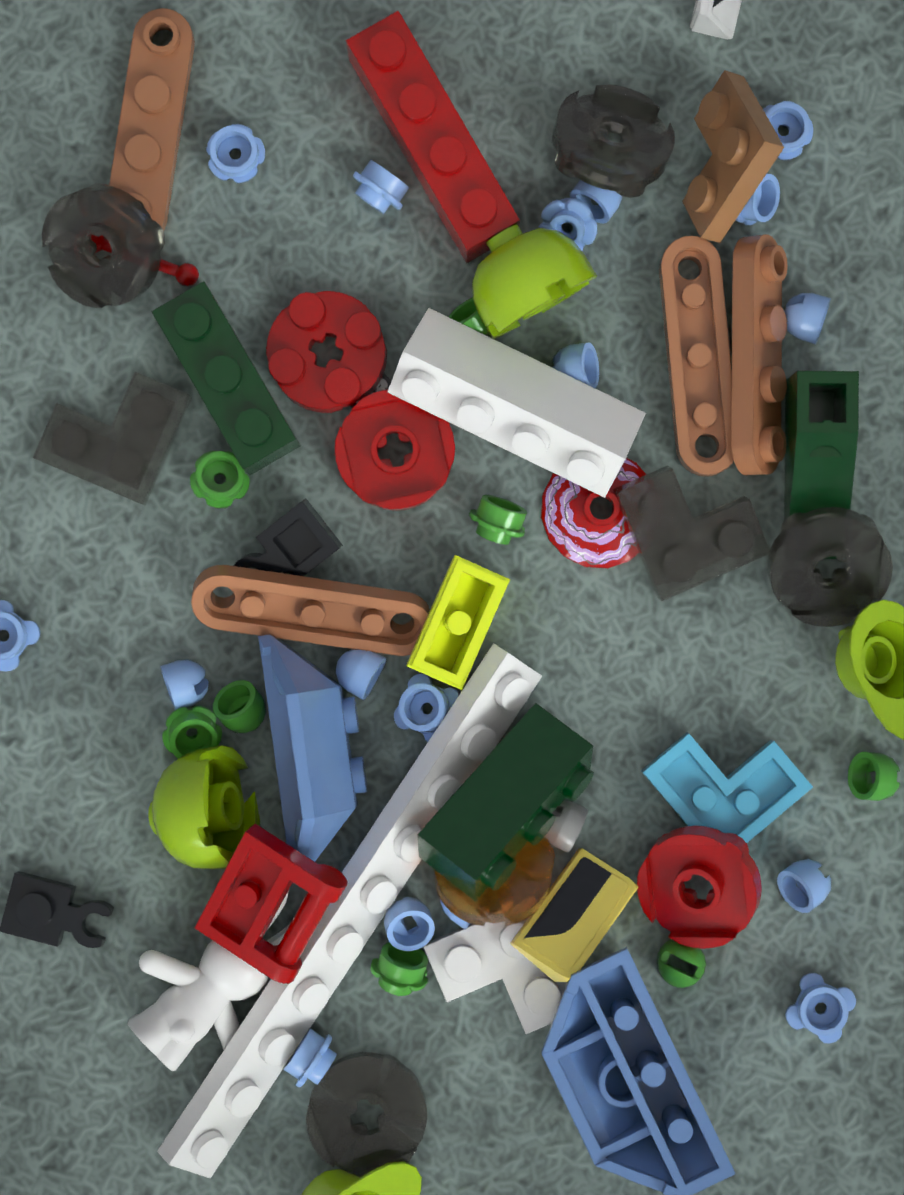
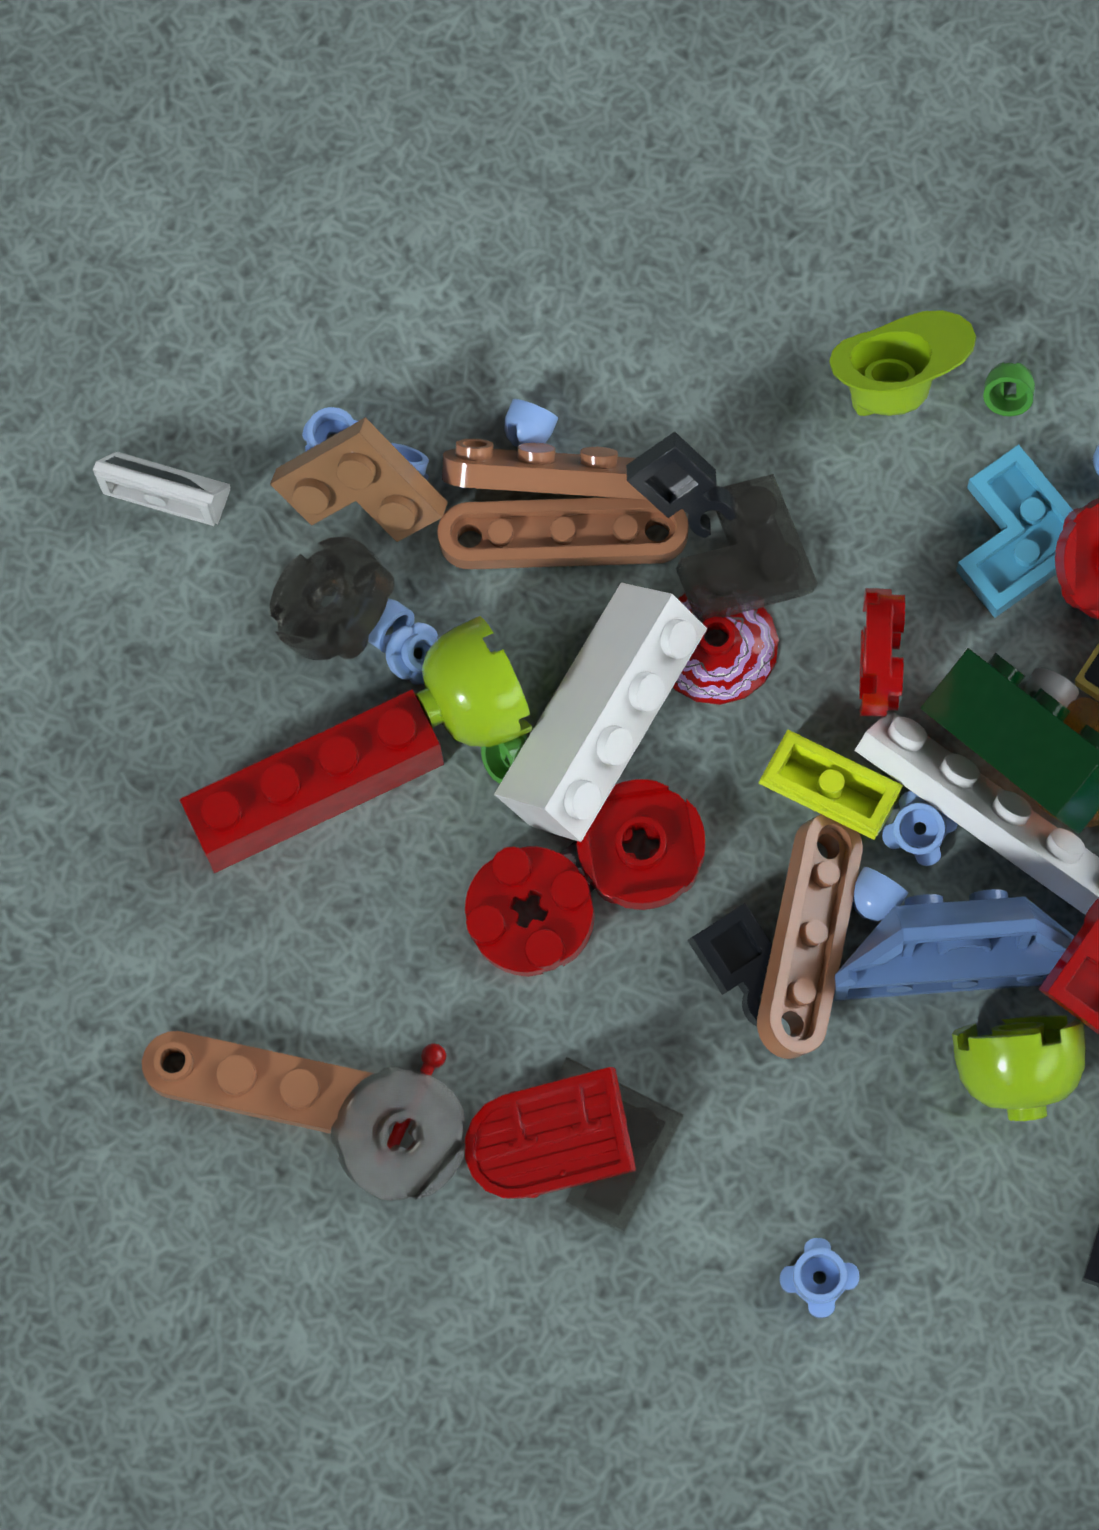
camera: 80 degrees left, 15 degrees down
(110, 385) = (550, 1137): none -> red window
(181, 720) = (940, 1061): bright green plate -> none
(184, 682) = (878, 1077): light blue hinge -> none
(216, 494) = (655, 1015): bright green plate -> none
(226, 378) = (555, 1010): dark green brick -> none
(230, 138) = (303, 978): light blue plate -> none
(239, 707) = (909, 1023): bright green hinge -> none
(380, 187) = (357, 843): light blue plate -> none
(498, 519) = (722, 741): bright green plate -> none
(578, 362) = (559, 654): light blue hinge -> none
(603, 658) = (879, 672): none -> red plate
(746, 460) = (678, 479): none -> black plate
(820, 440) = (646, 405): dark green slope -> none
(822, 534) = (763, 429): clear smoke plate -> none

